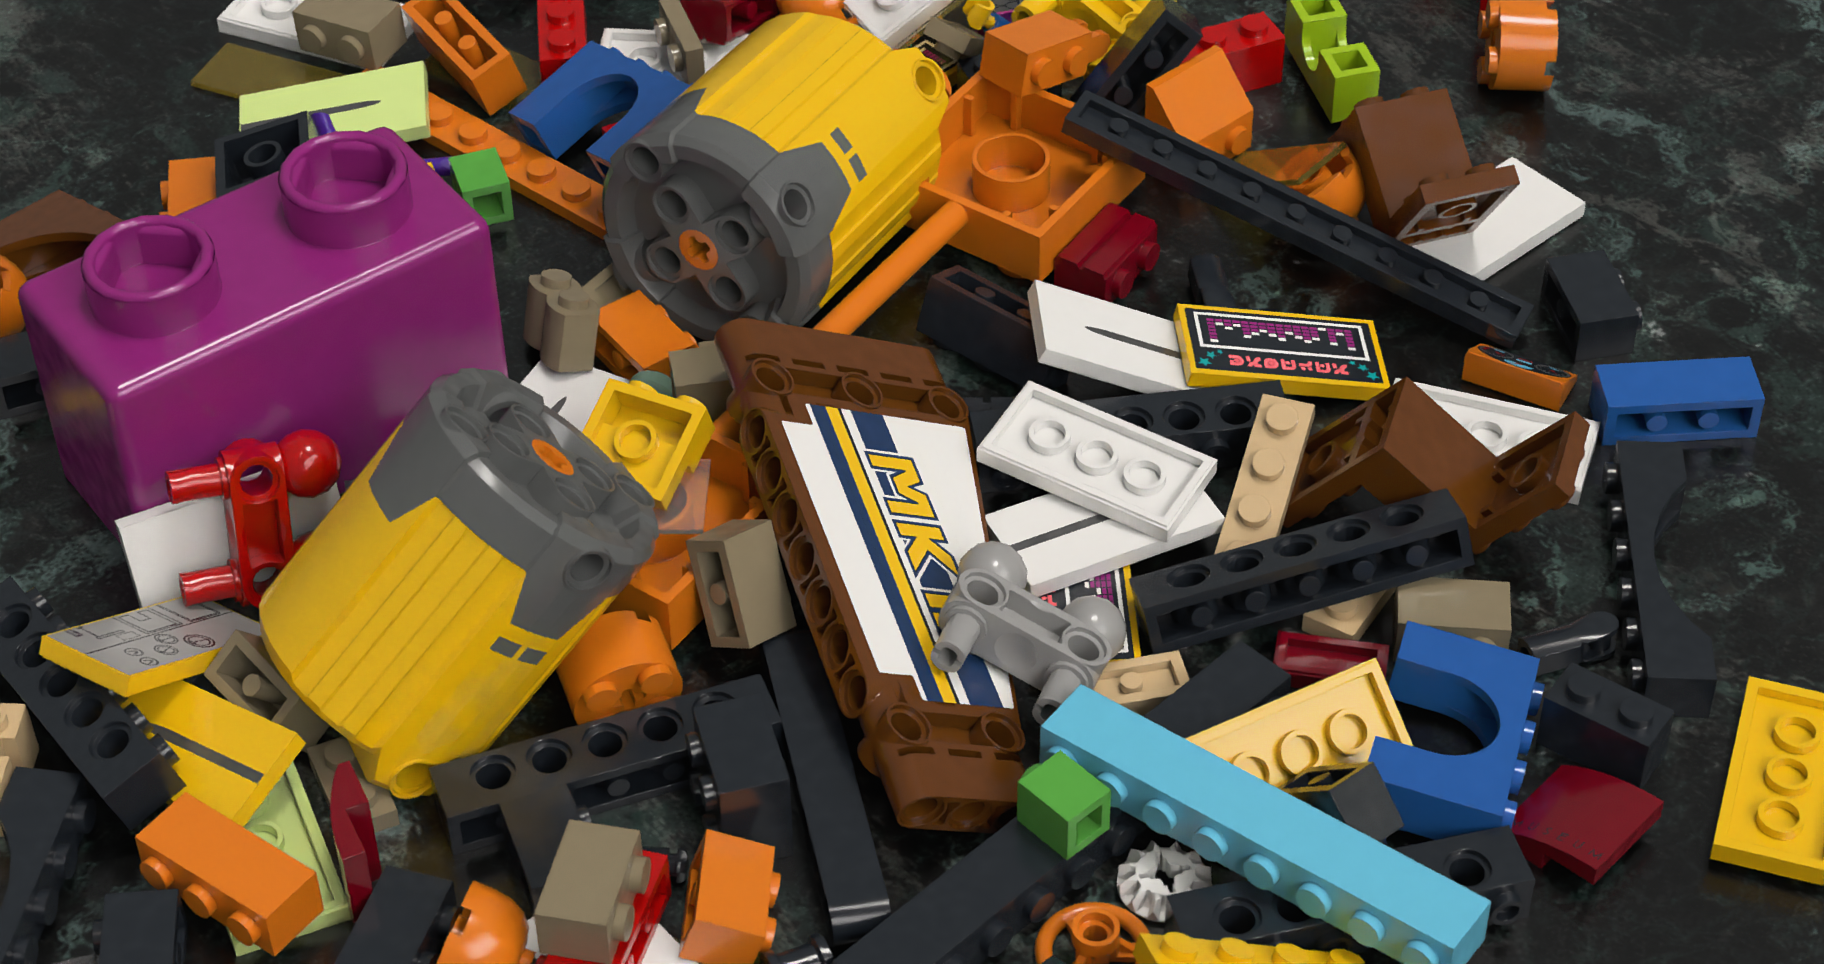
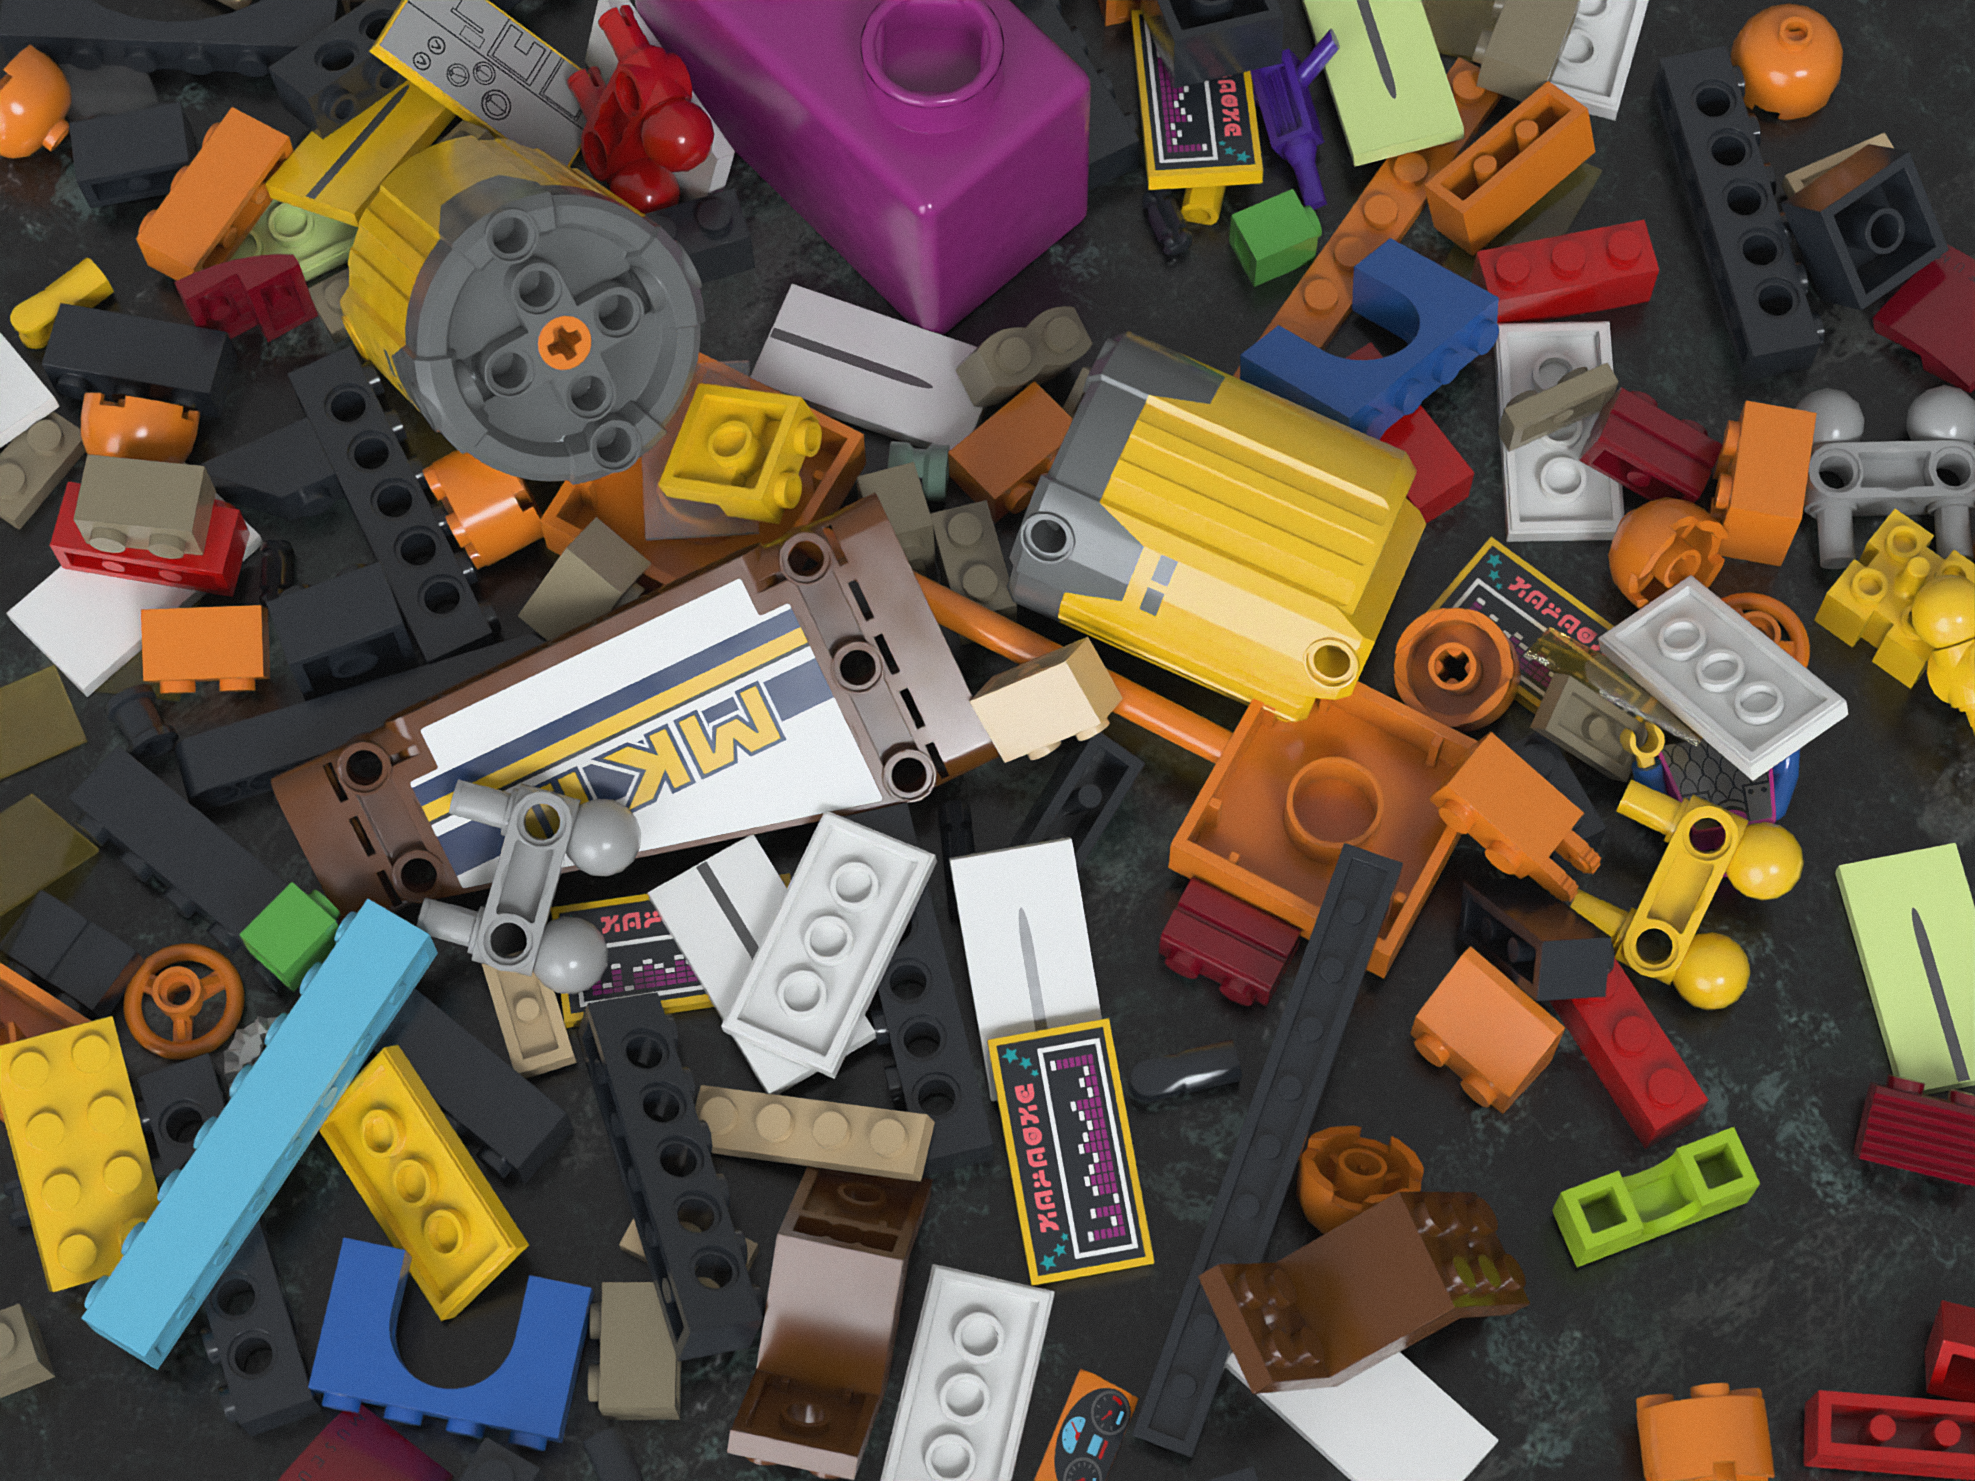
camera: 85 degrees right, 25 degrees up
(903, 293) = (1047, 701): none -> tan brick
(1291, 164) = (1394, 1125): clear yellow piece -> none
(1318, 657) = (587, 1224): dark red tile -> none
(1351, 795) = (313, 1212): black brick -> none

